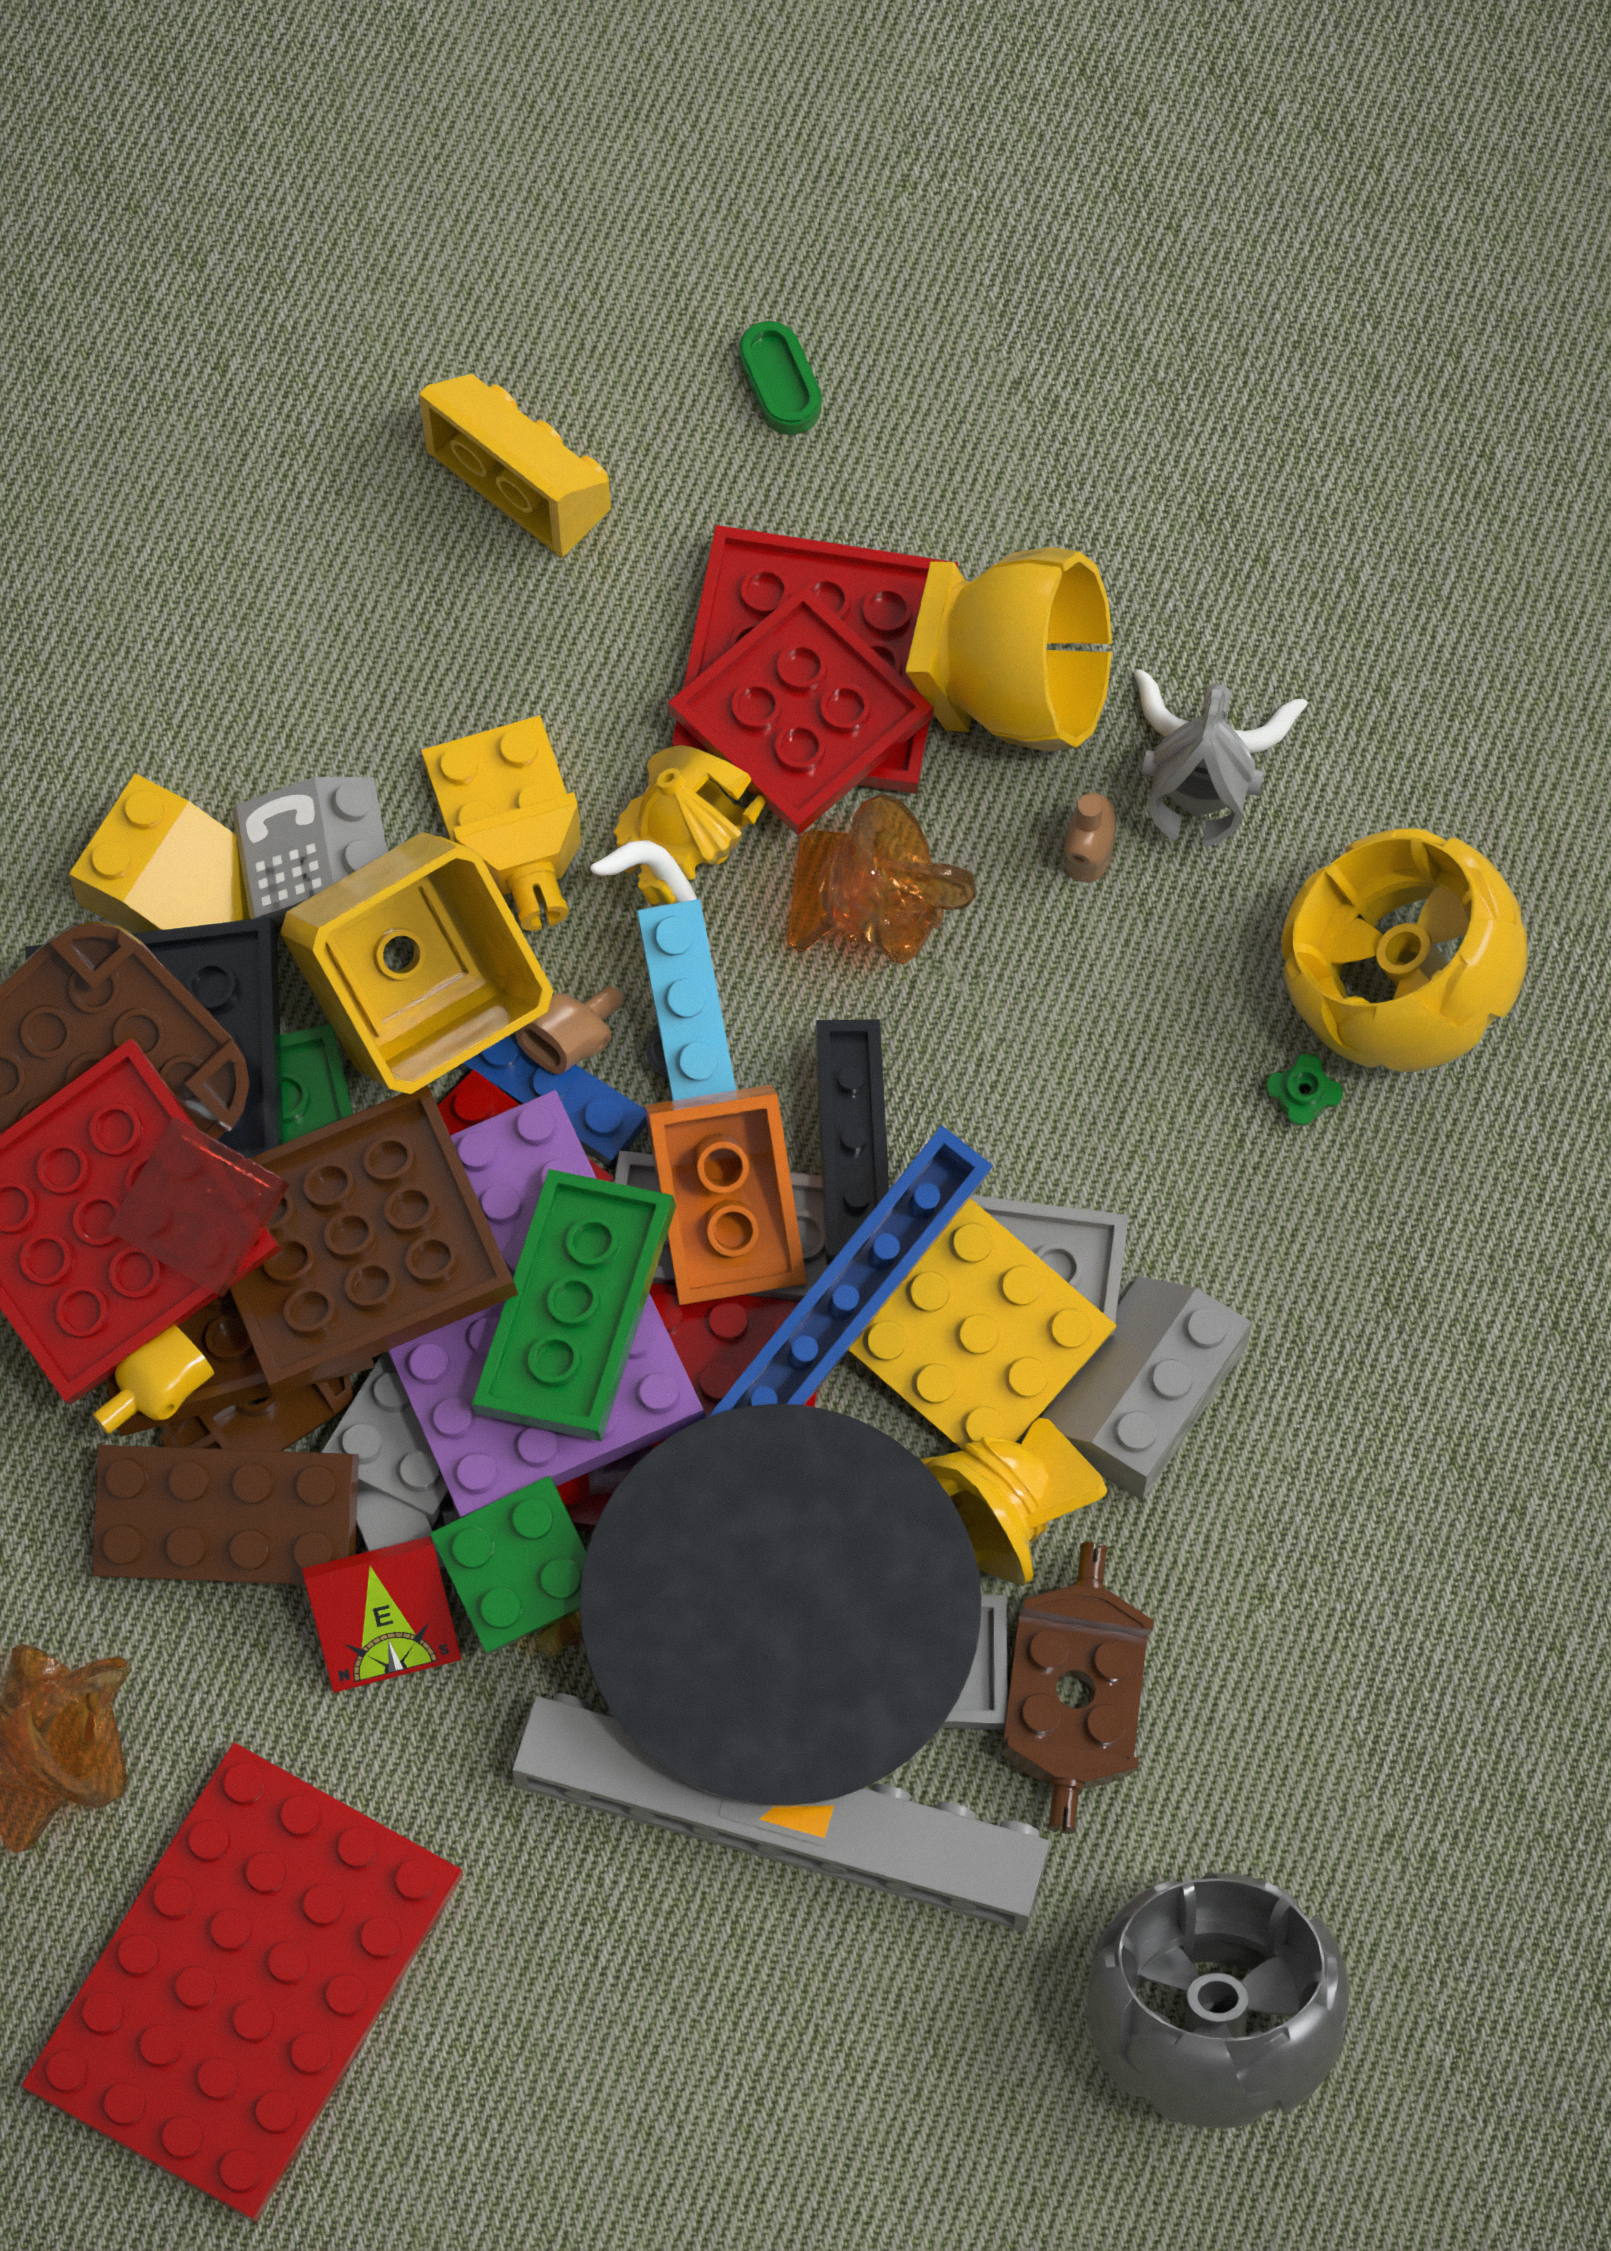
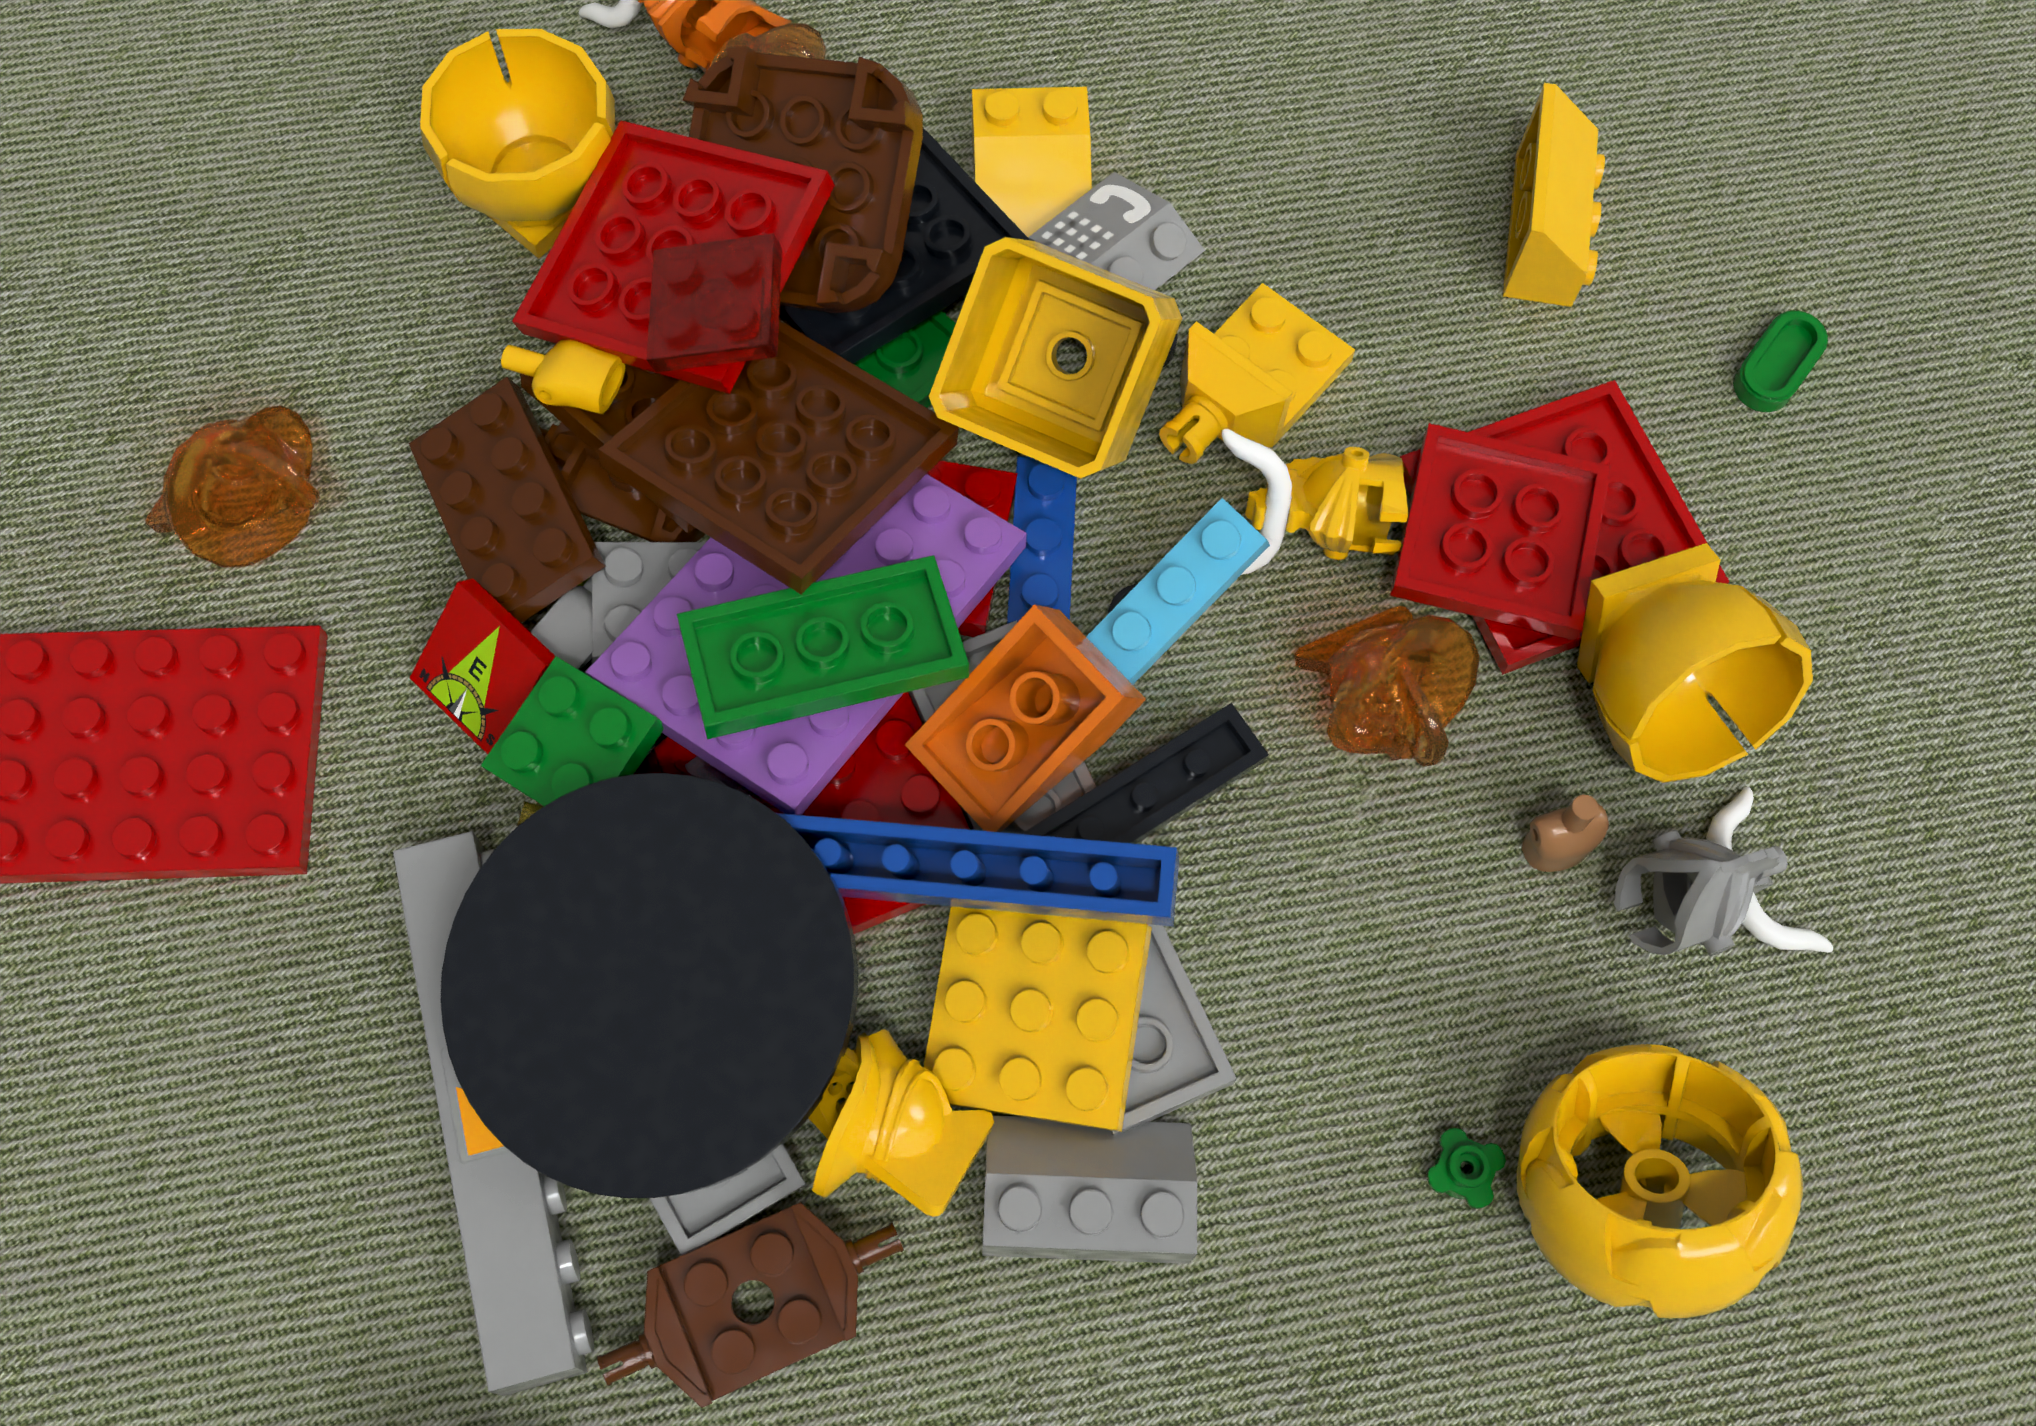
camera: 55 degrees right, 0 degrees up
(569, 1030) = (1096, 520): medium nougat piece -> none

